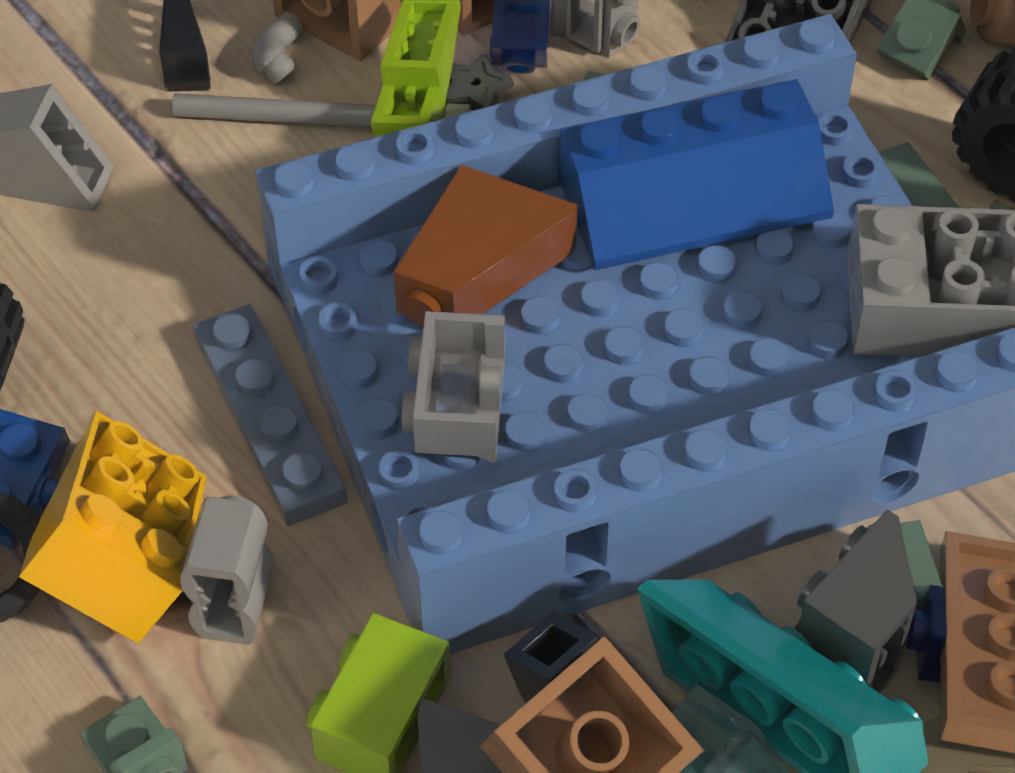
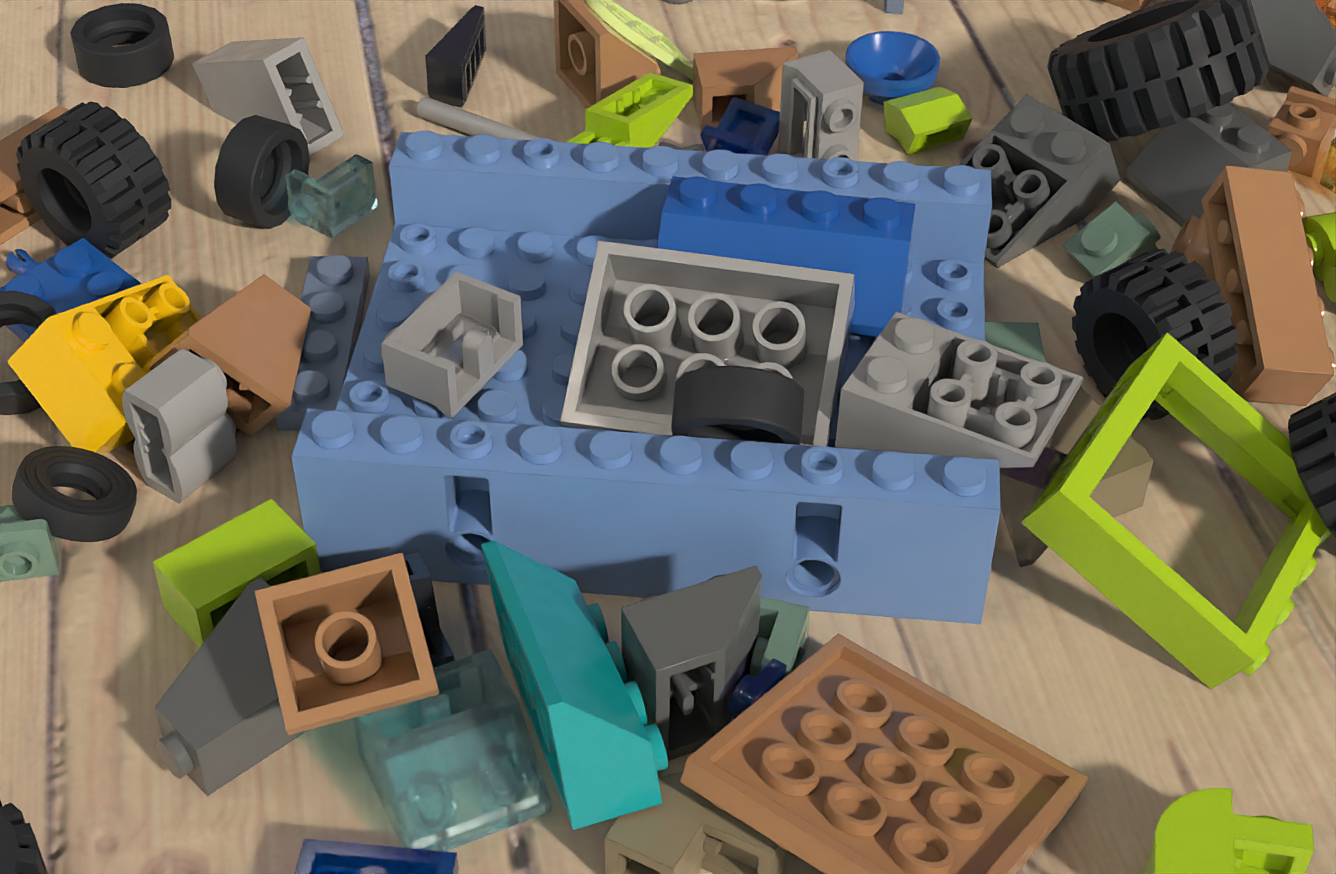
camera: 25 degrees right, 10 degrees down
(91, 250) = (248, 149): none -> black tyre
(166, 654) = (82, 470): none -> black tyre
(171, 257) = (333, 199): none -> clear light blue bracket
(221, 448) = (256, 345): none -> medium nougat slope
(270, 44) = (525, 92): light grey arm -> none
(482, 246) = (543, 245): dark orange slope -> none
(702, 305) = (679, 311): none -> light grey slope
(789, 364) = (738, 405): none -> black tyre

